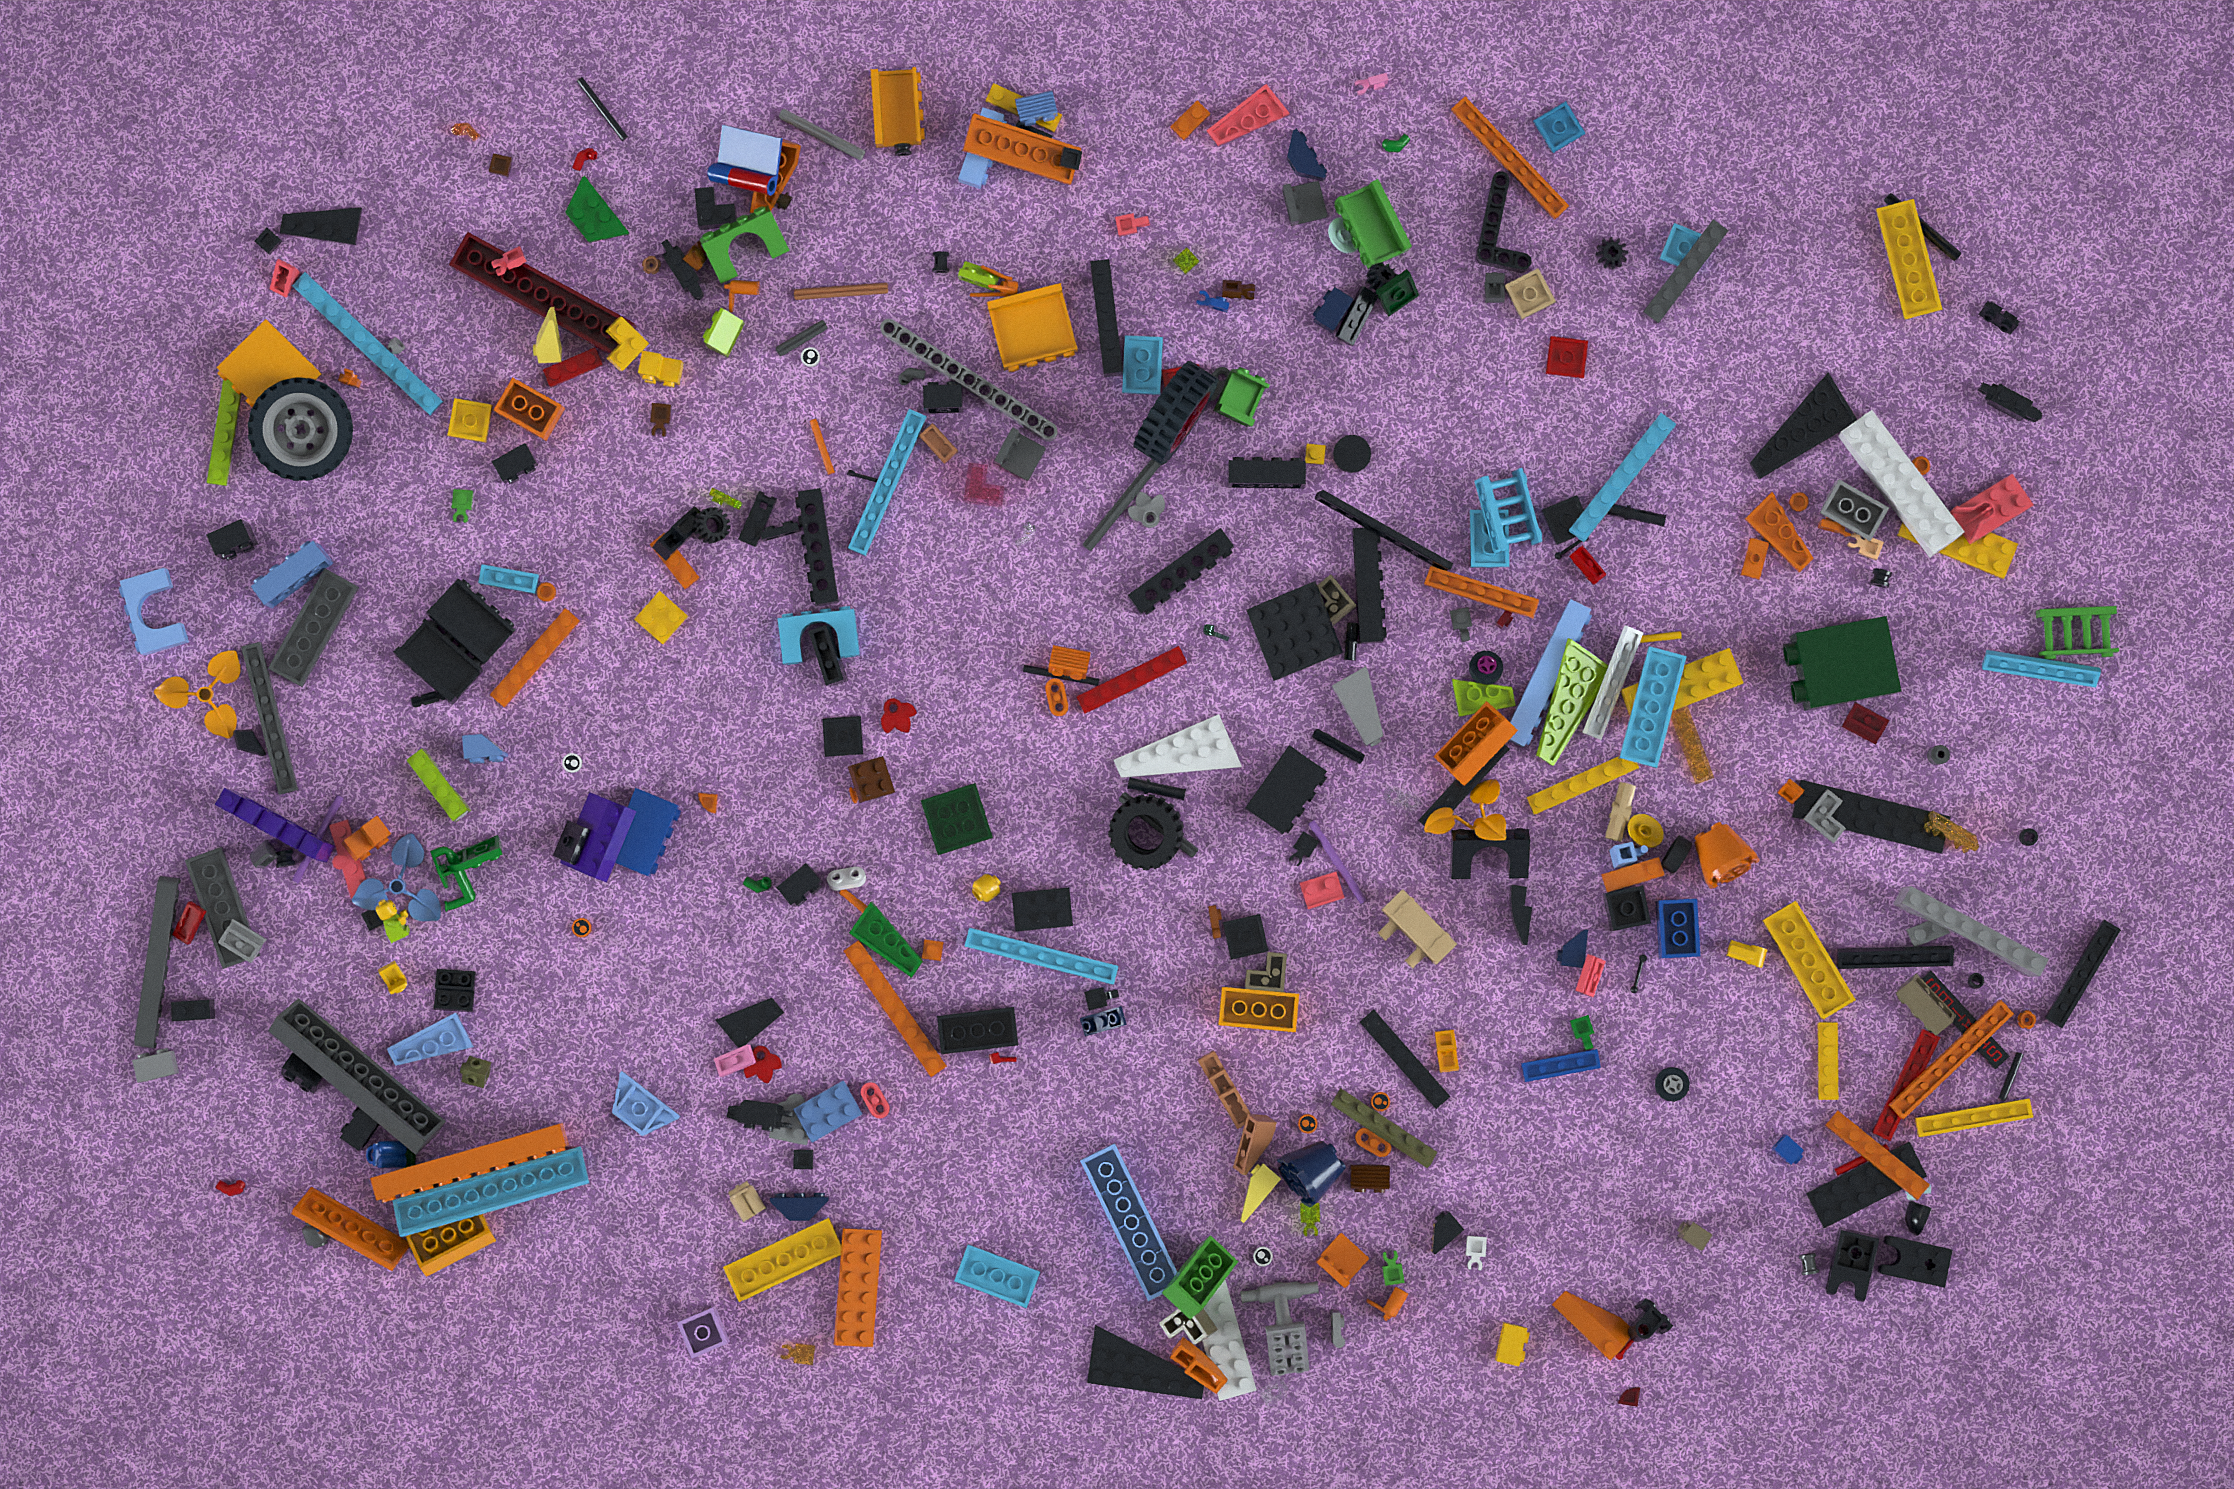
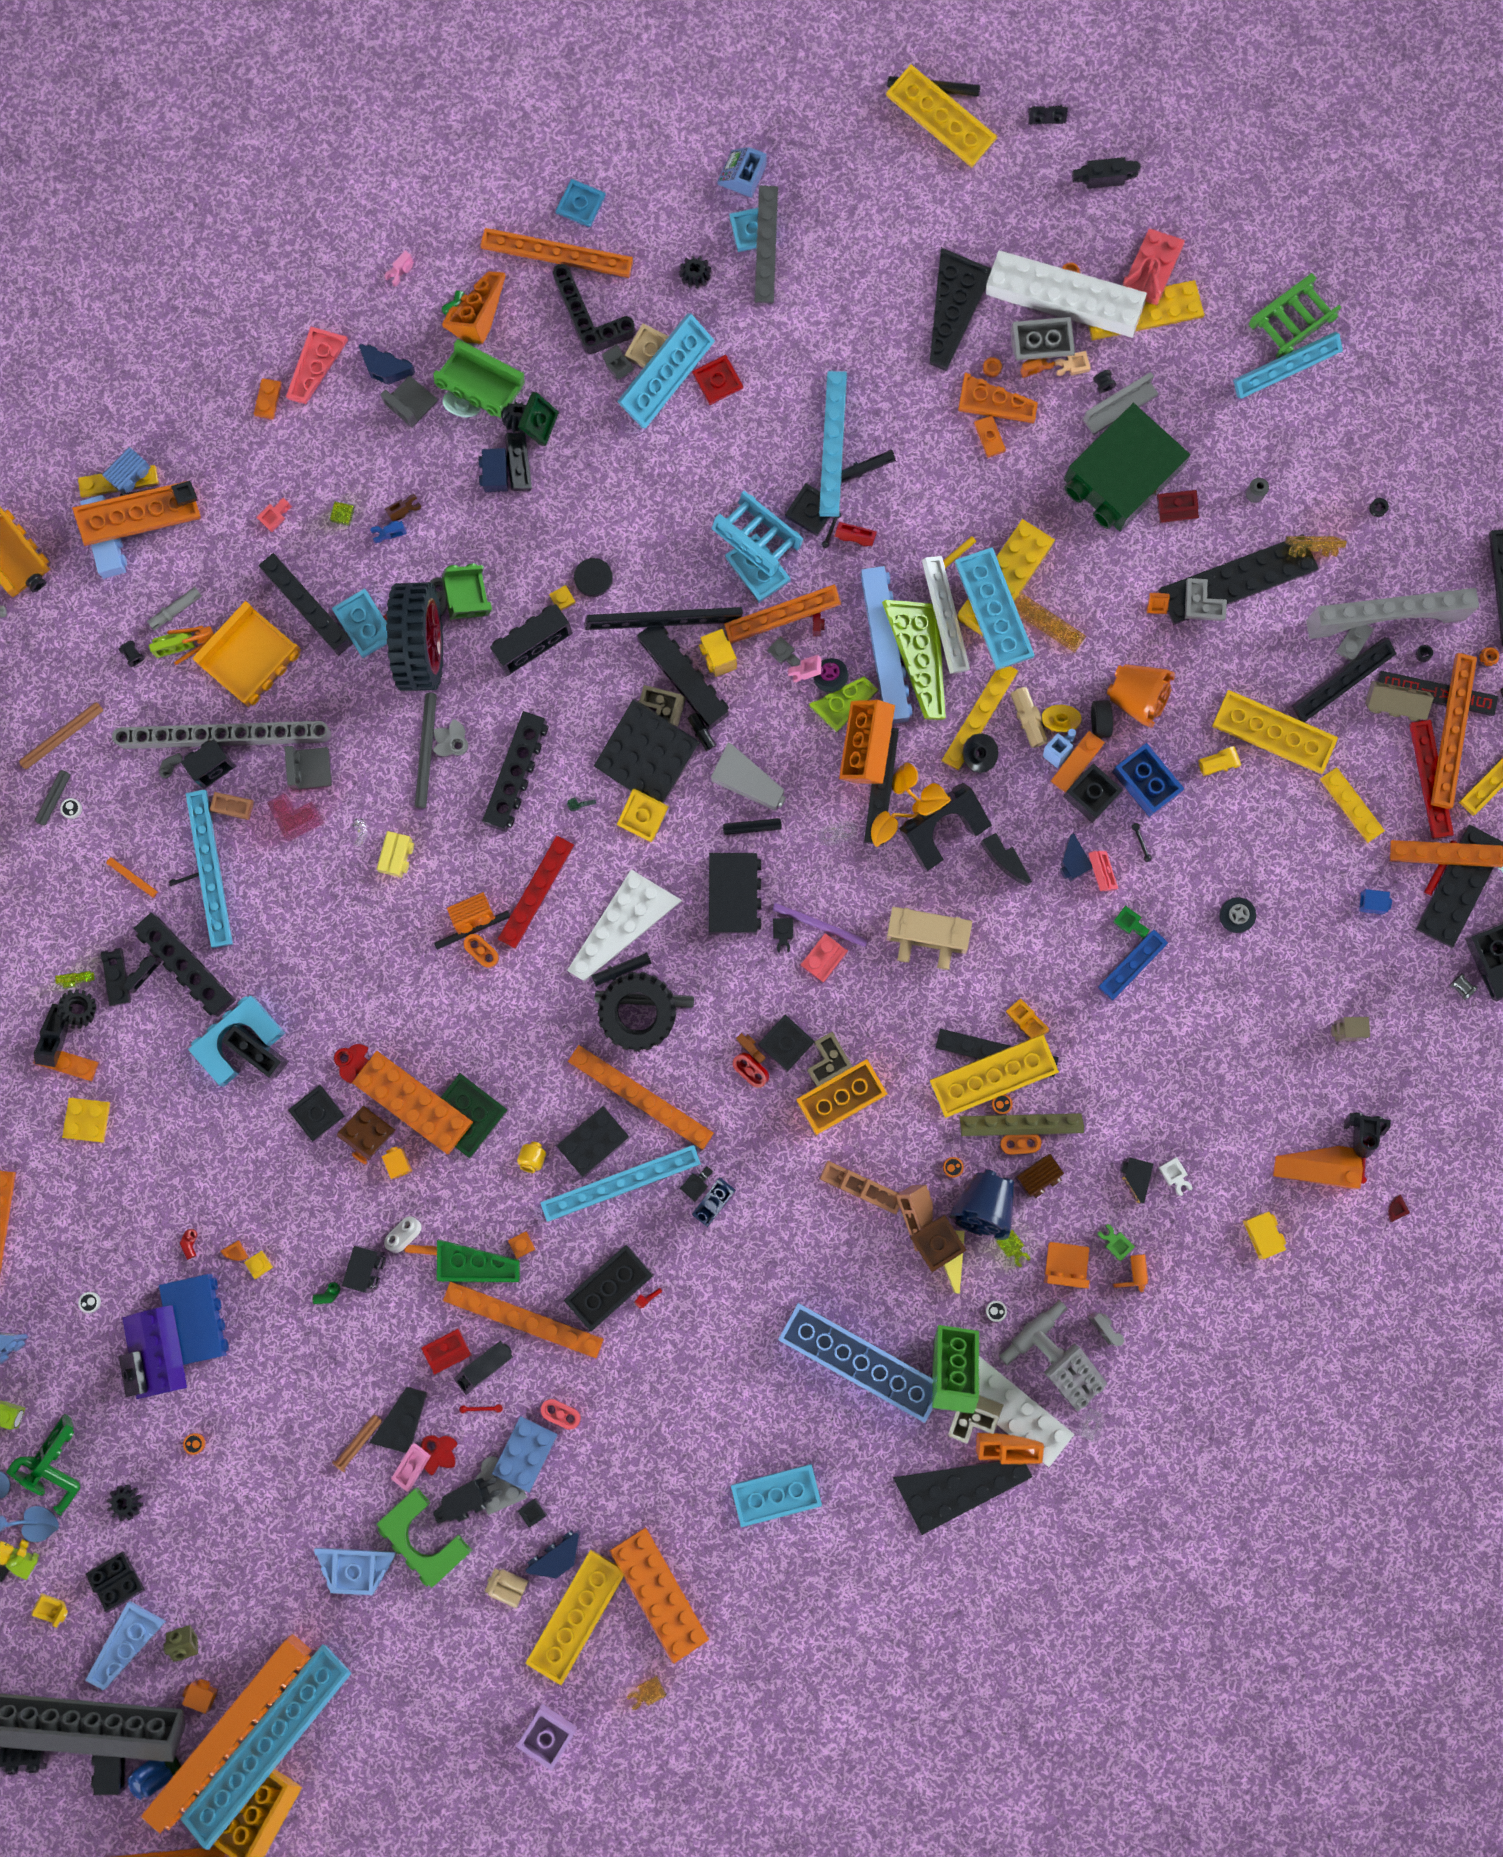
camera: 30 degrees left, 5 degrees down
(464, 1119) = (199, 1695): none -> orange brick
(506, 939) = (132, 1502): none -> black gear
(677, 768) = (187, 1242): none -> red arm
(694, 1097) = (396, 1527): none -> bright green arch
(706, 1013) = (357, 1443): none -> nougat axle
(720, 824) = (258, 1265): none -> yellow plate
(820, 991) = (446, 1351): none -> red plate
(830, 1062) = (498, 1408): none -> red hinge
(840, 1024) = (483, 1367): none -> black slope
(879, 819) = (396, 1162): none -> light orange brick
(923, 781) = (412, 1102): none -> orange plate
(999, 247) = (166, 614): none -> light grey pin
(1041, 572) = (395, 854): none -> light yellow brick
(1102, 899) = (640, 1097): none -> orange plate
(1202, 938) = (750, 1070): none -> red plate
(1253, 1173) = (938, 1243): none -> reddish brown plate
(1257, 677) = (642, 815): none -> yellow plate
(1389, 1075) = (994, 1075): none -> yellow plate
(1406, 165) = (475, 314): none -> orange wedge
(1409, 587) = (719, 653): none -> yellow brick
(1472, 650) = (808, 668): none -> bright pink plate
(1529, 323) = (666, 371): none -> medium azure plate
(1564, 820) = (987, 752): none -> black dish
(1711, 193) = (743, 170): none -> medium blue slope
(1880, 606) = (1110, 409): none -> light grey fence

